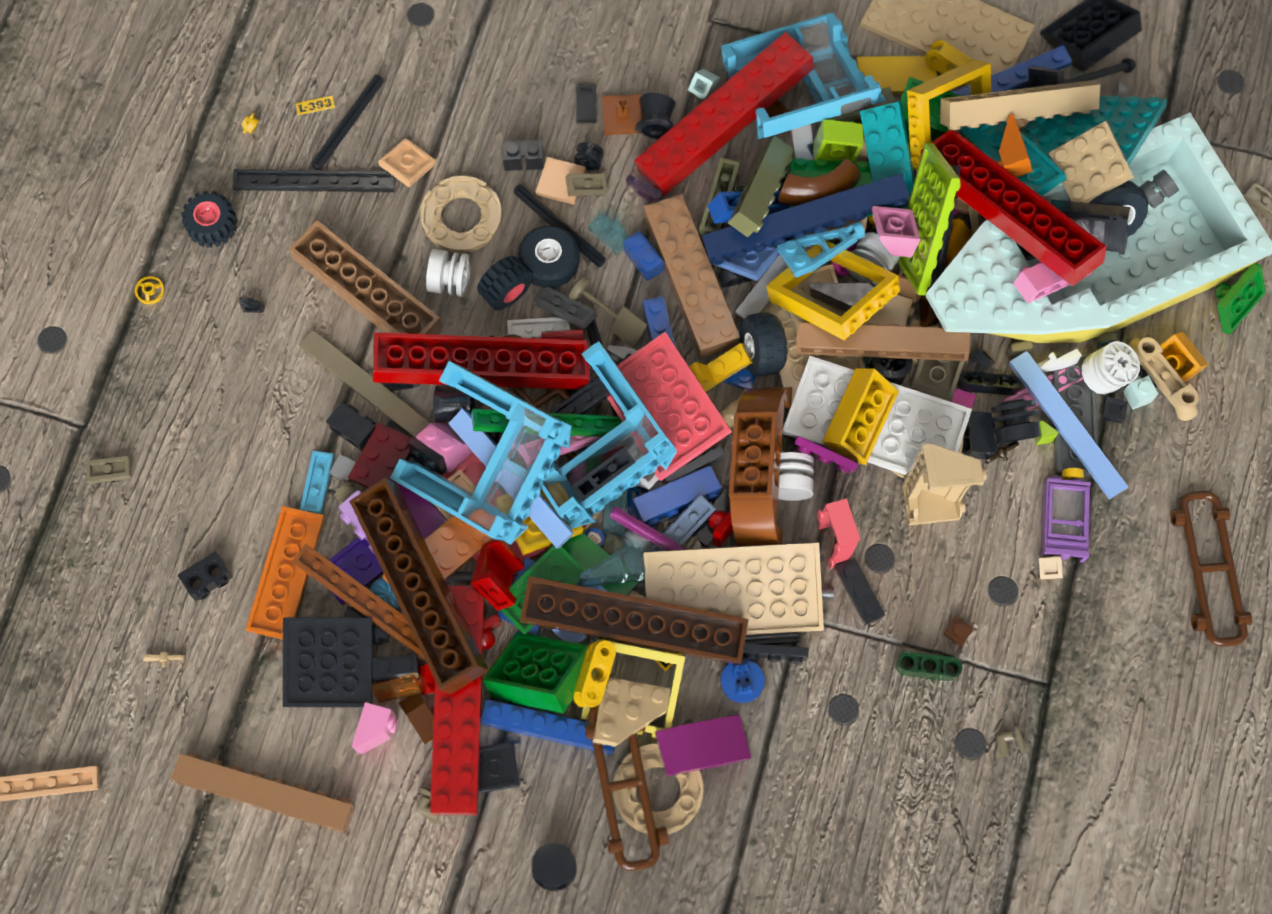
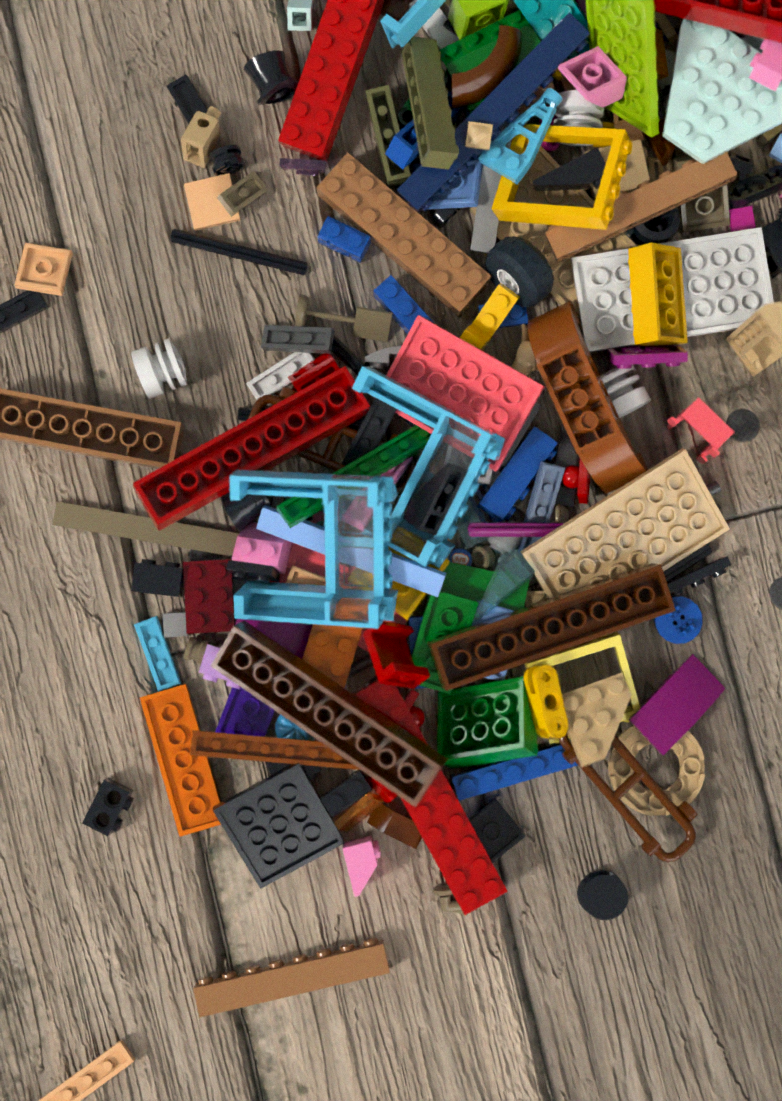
camera: 25 degrees left, 15 degrees up
(163, 657) = (117, 905): tan piece -> none
(456, 188) = (112, 268): tan plate -> none
(505, 282) = (224, 348): black wheel -> none
(530, 149) = (149, 196): black piece -> none
(550, 256) = (249, 293): black wheel -> none
(578, 129) = (201, 136): none -> tan torso
(609, 232) = (294, 232): clear light blue slope -> none
(621, 114) = (232, 92): dark orange tile -> none
(784, 226) = (479, 135): none -> tan tile
(859, 591) = (743, 471): black plate -> none

